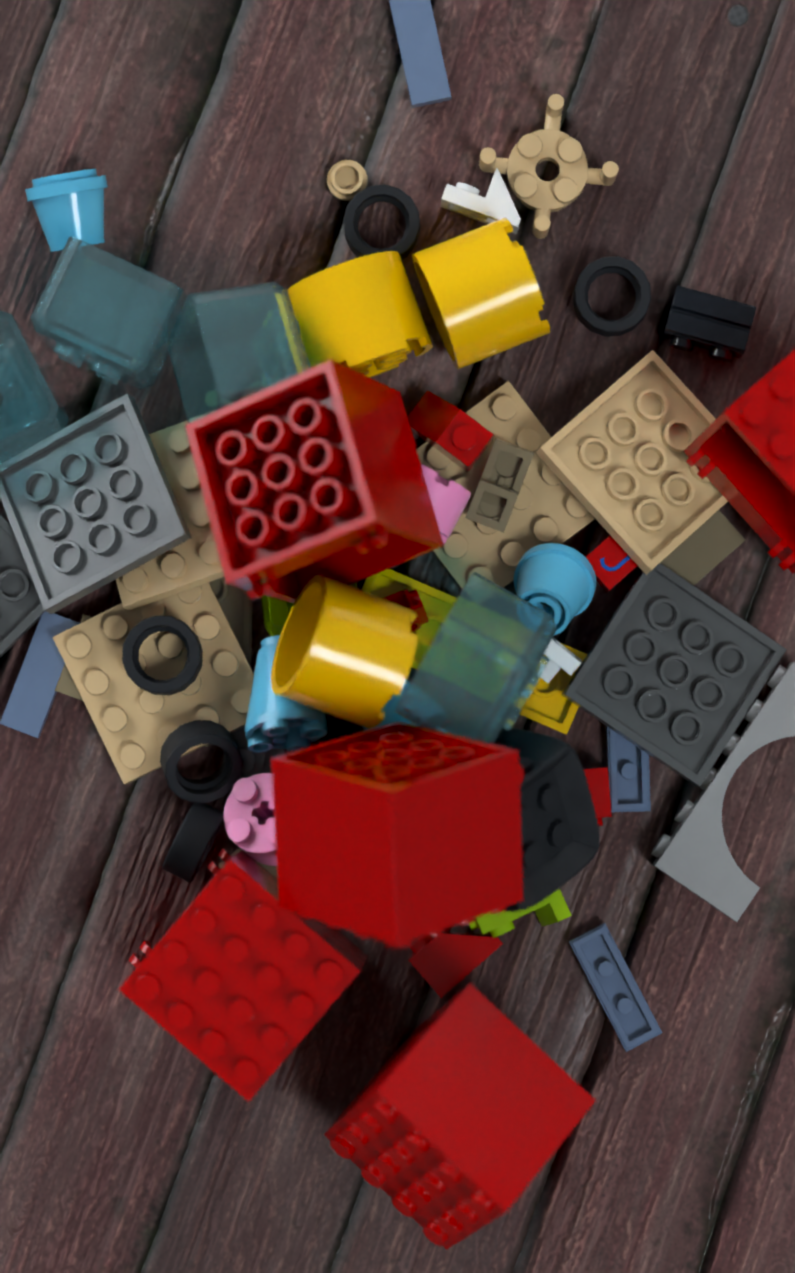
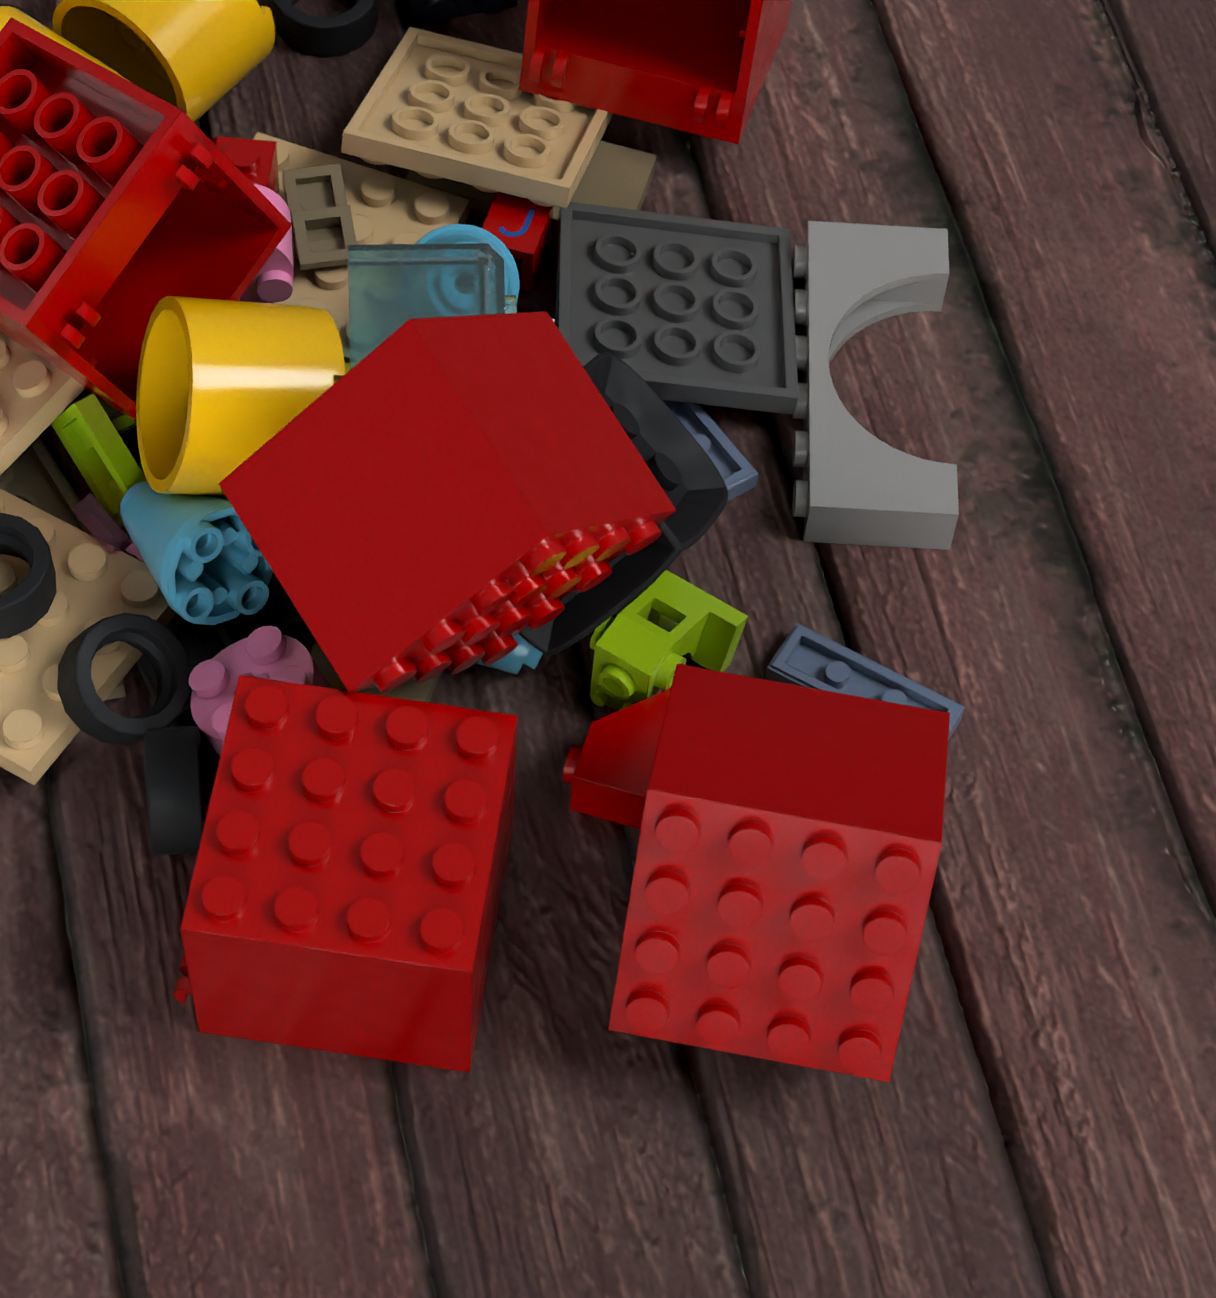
camera: 40 degrees left, 30 degrees down
(249, 641) = (105, 526): none -> clear pink tile

